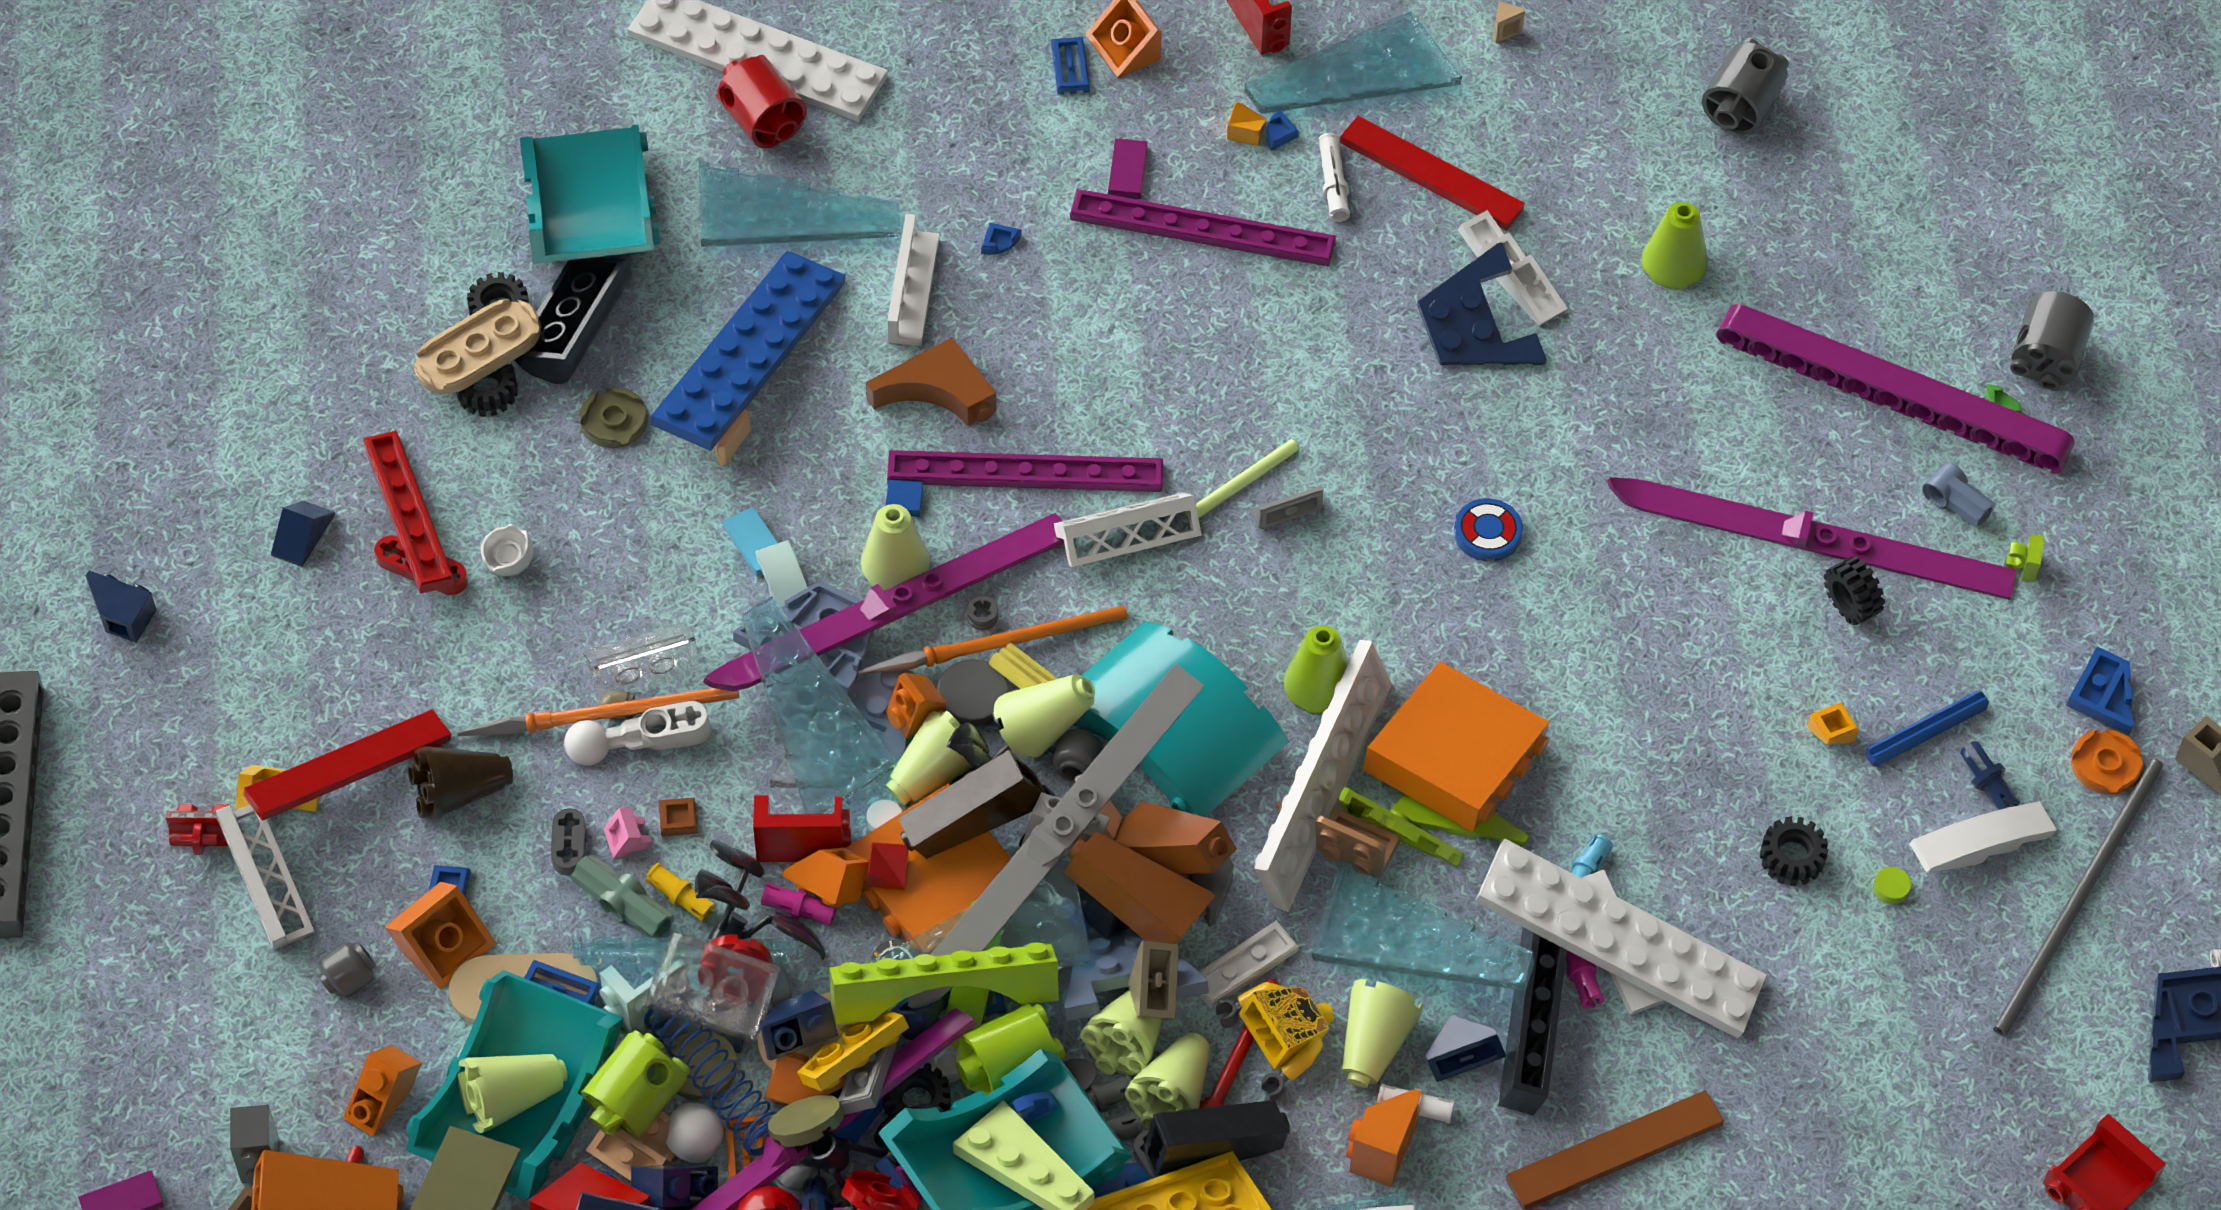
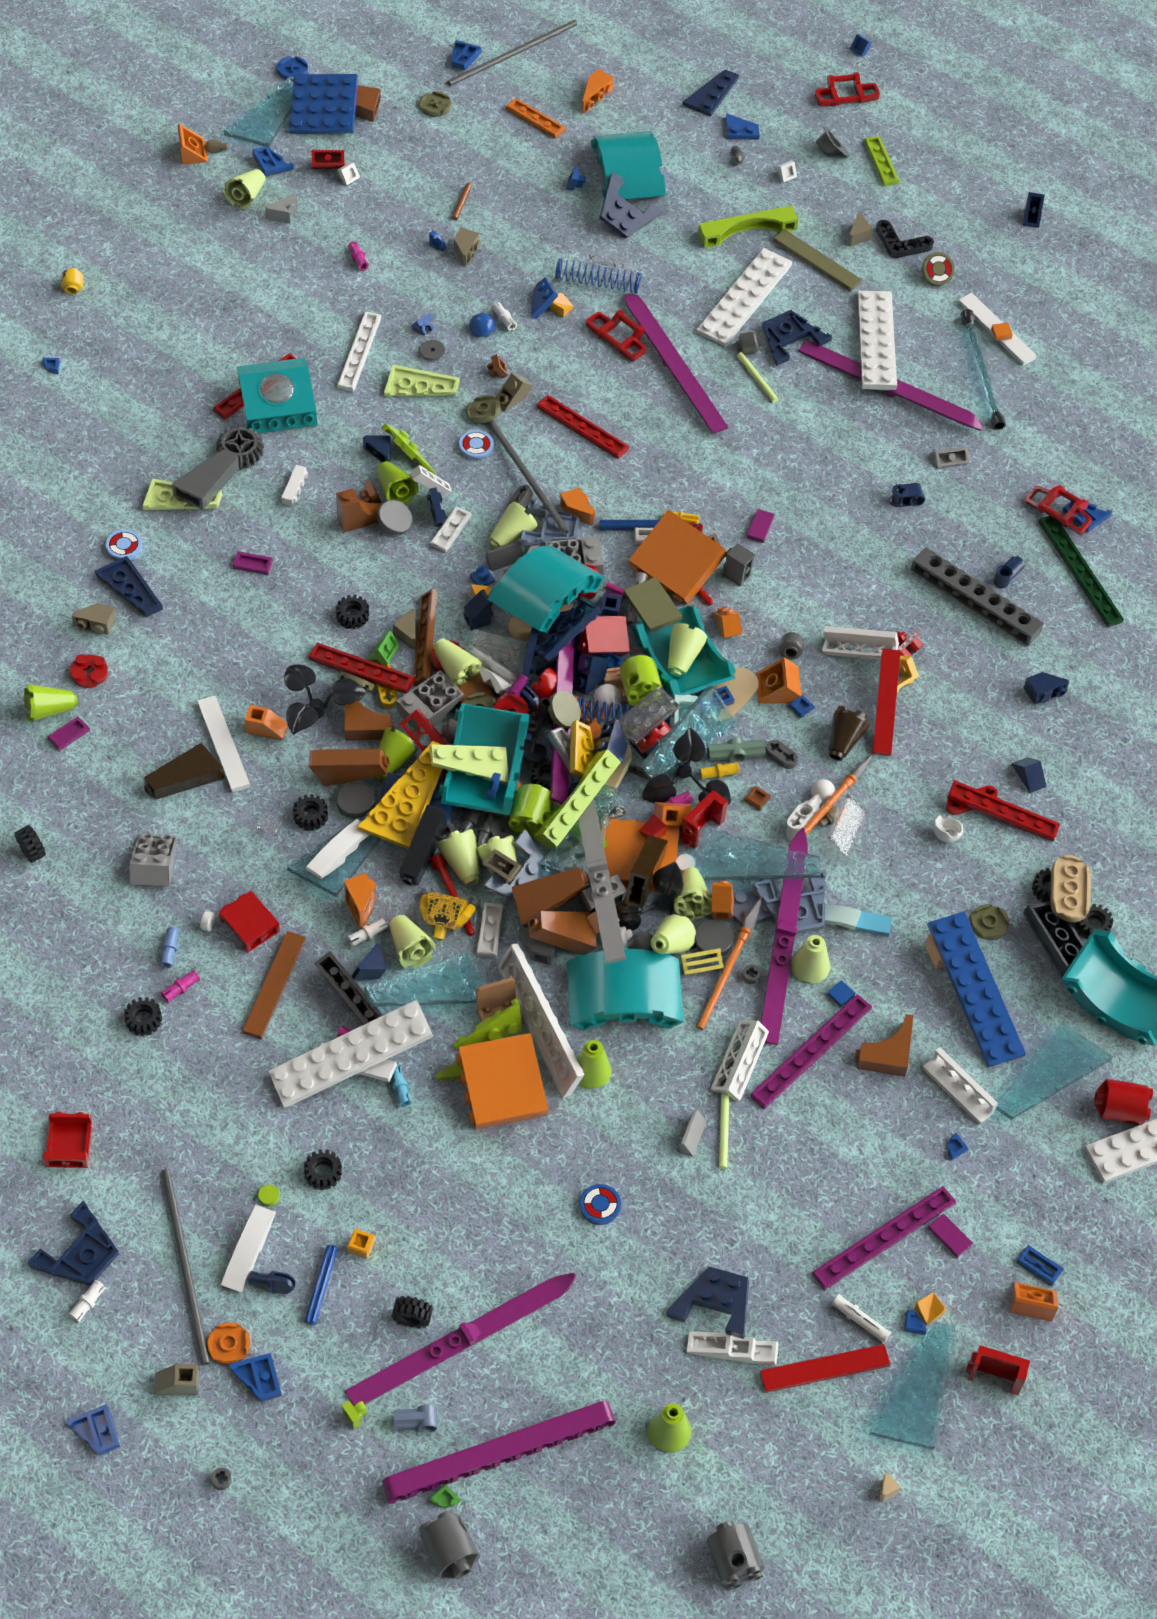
camera: 130 degrees right, 0 degrees up
(624, 834) = (763, 770): bright pink tile -> none

